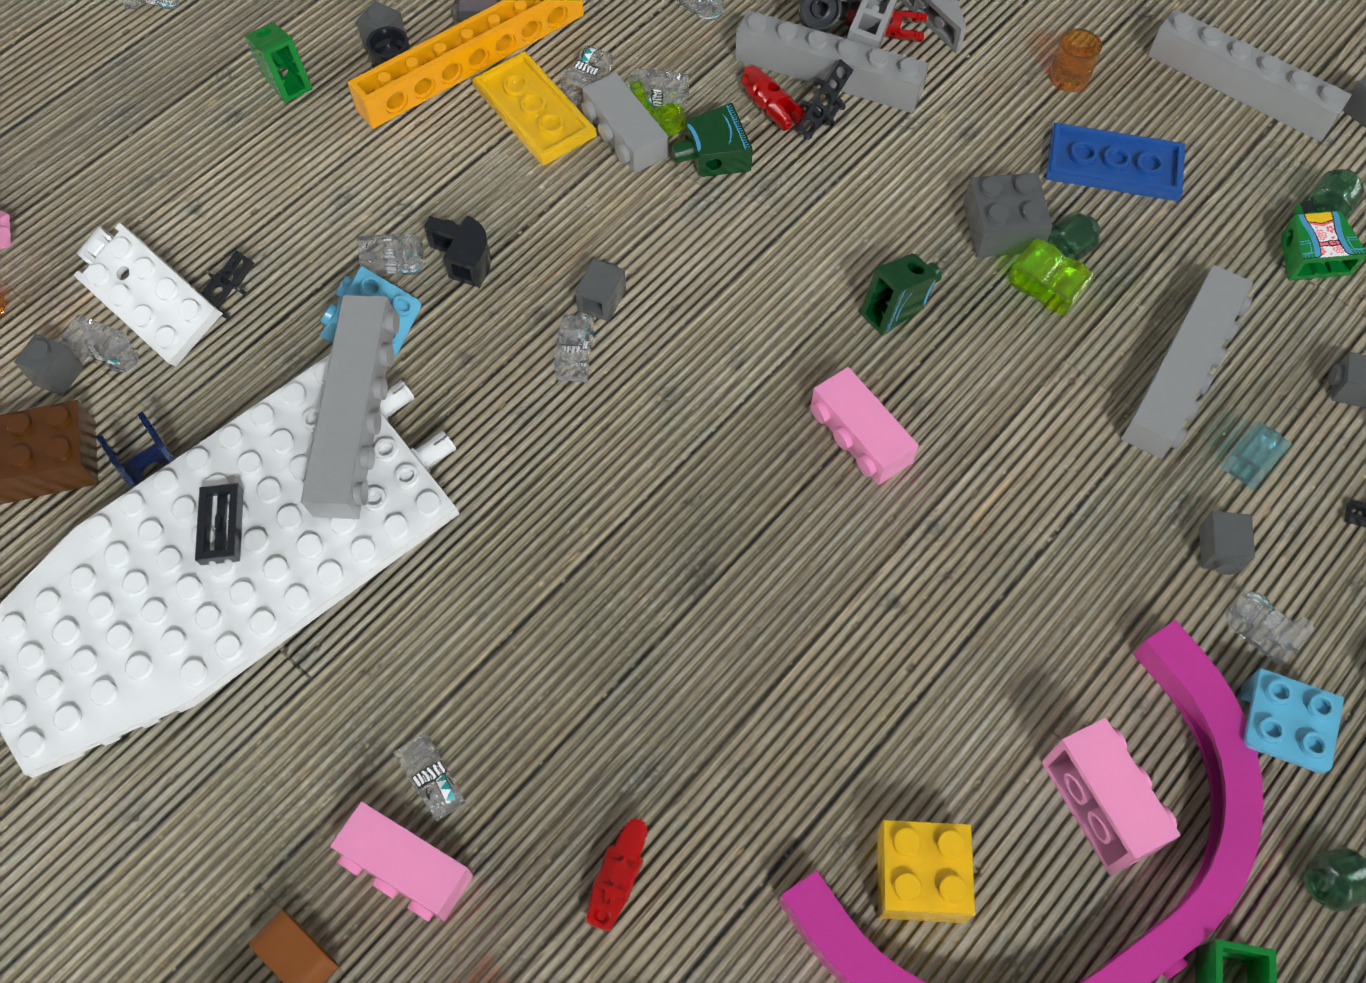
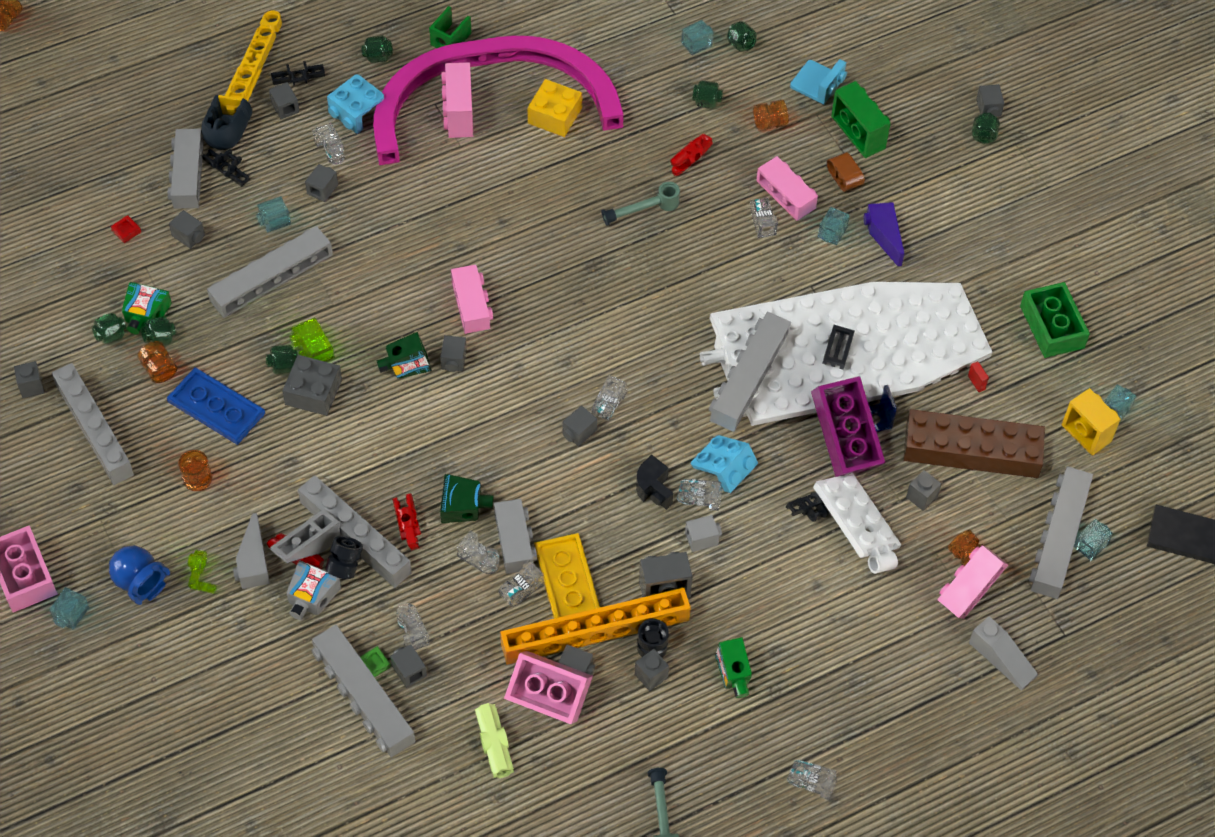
camera: 160 degrees left, 5 degrees down
(100, 342) = (891, 498): clear leg -> none
(178, 393) = (854, 414): none -> magenta brick
(189, 847) = (885, 230): none -> dark purple slope
(289, 805) = (833, 226): none -> clear light blue brick
(369, 205) = (702, 533): none -> light grey brick
(396, 117) = (665, 574): none -> dark grey brick
(668, 116) = (488, 524): clear neon green plate -> none
(708, 673) = (666, 203): none -> sand green piece
(812, 113) = (384, 497): black piece -> none
(839, 331) = (453, 353): none -> dark grey brick
(1234, 172) = (157, 362): none -> clear orange wheel
(1269, 215) = (158, 330): none -> clear green head

